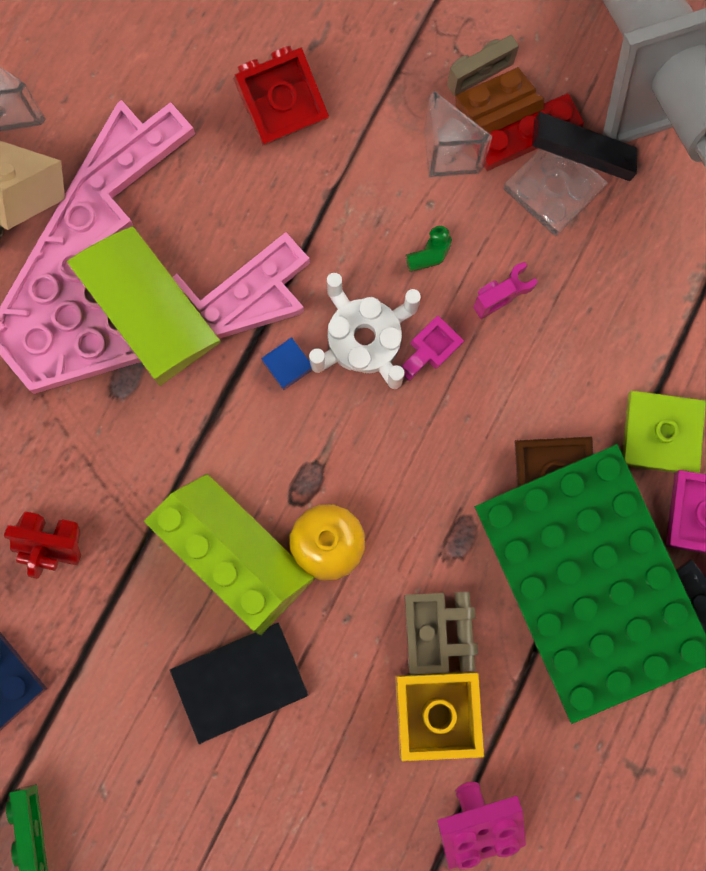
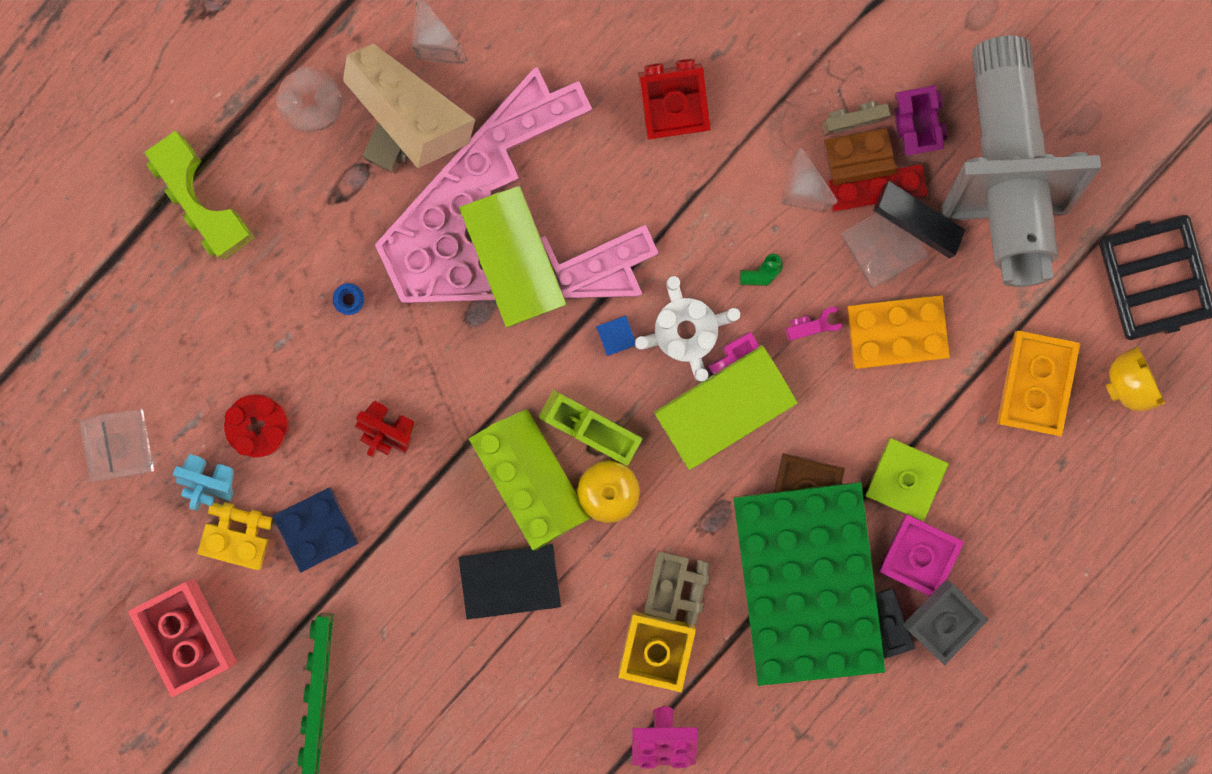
camera: 20 degrees right, 10 degrees up
(285, 473) = (590, 428): none -> lime slope
(434, 406) = (725, 407): none -> lime slope
(548, 46) = (918, 120): none -> magenta cylinder
(600, 275) = (898, 332): none -> light orange plate

